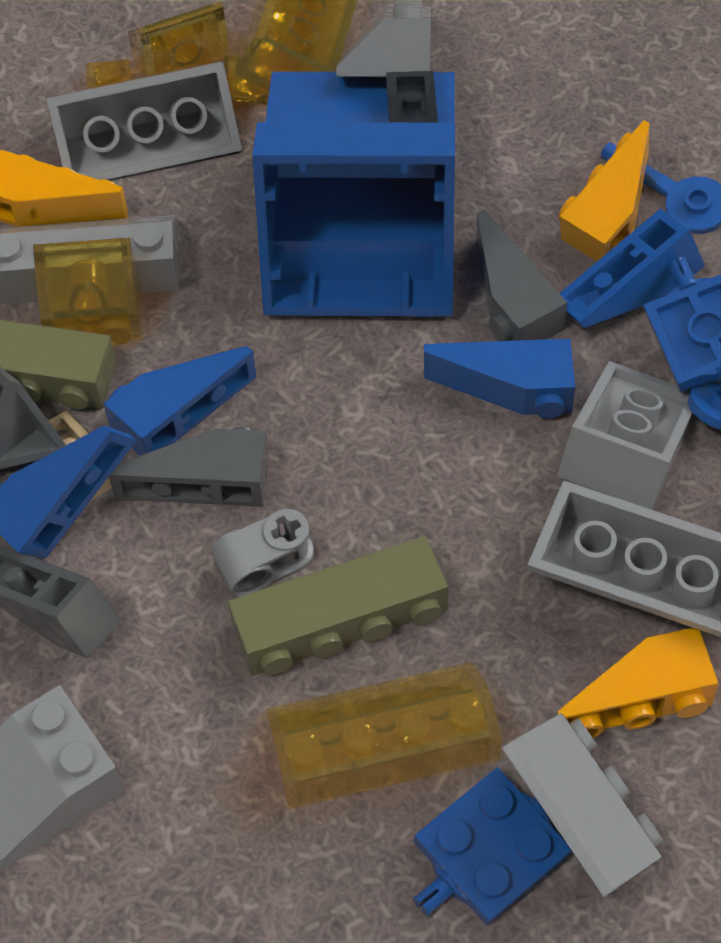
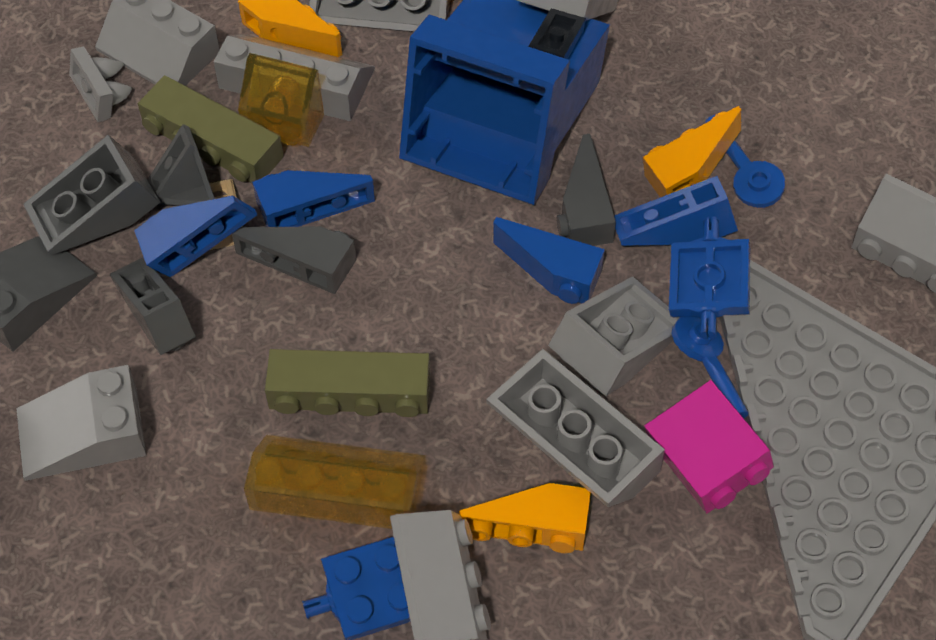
camera: 20 degrees right, 0 degrees up
(261, 555) = (314, 325): light grey piece -> none

